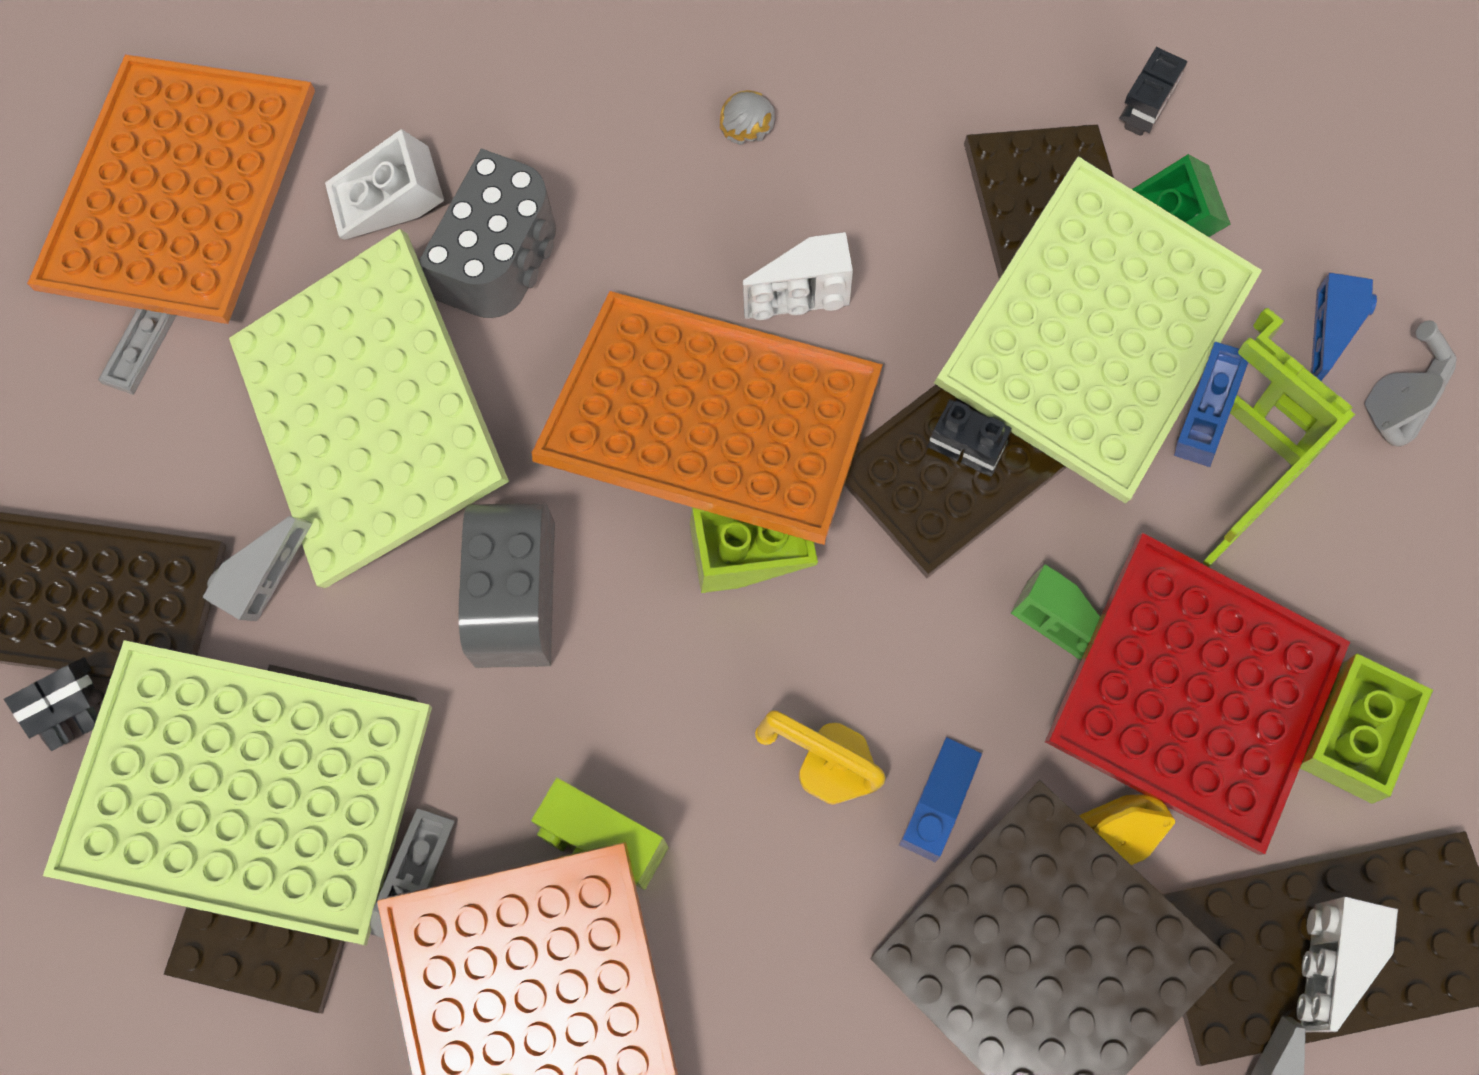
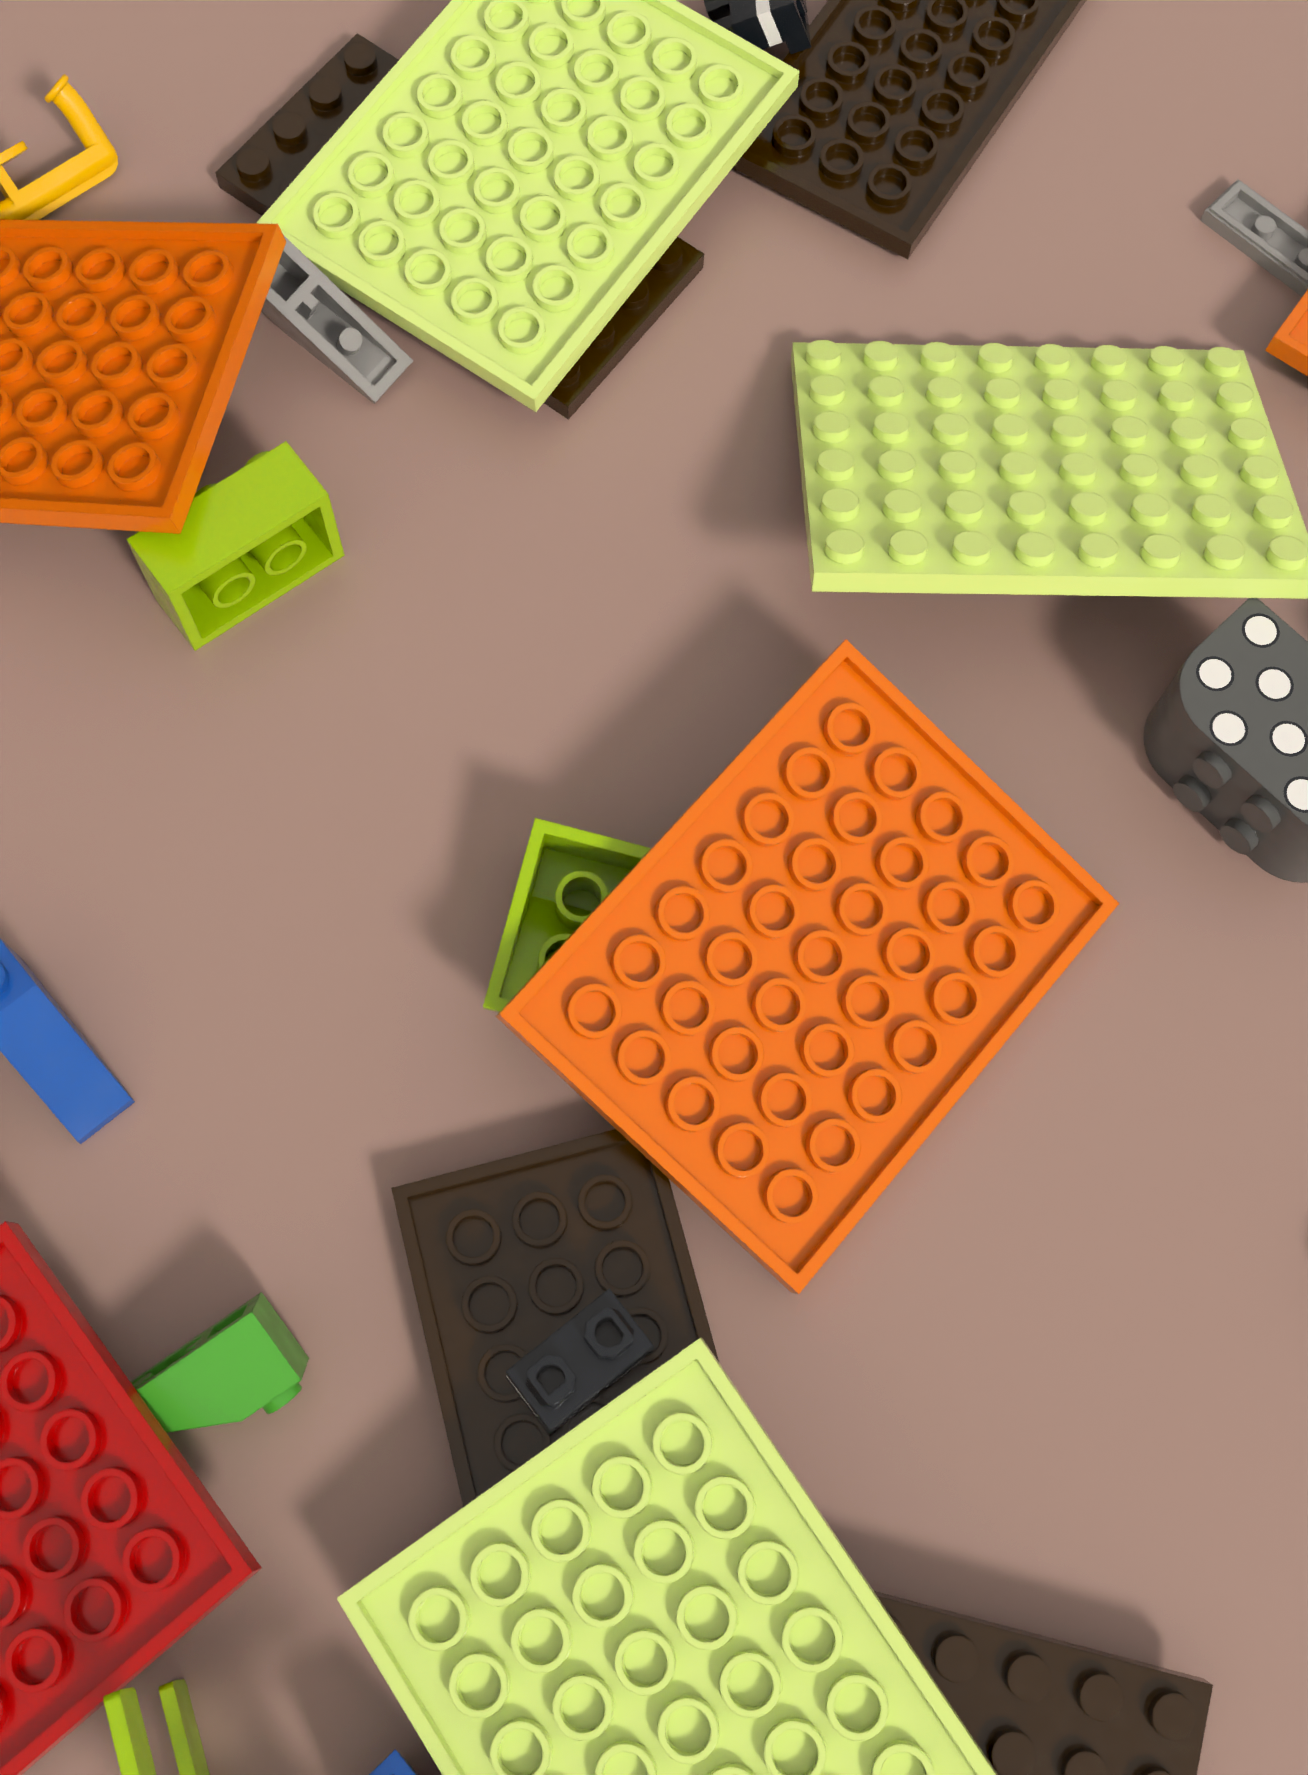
camera: 105 degrees right, 0 degrees up
(251, 576) = (835, 259): light grey slope -> none
(507, 585) = (670, 558): dark grey brick -> none
(802, 279) = (1015, 1223): white slope -> none
(836, 760) = (175, 910): yellow piece -> none

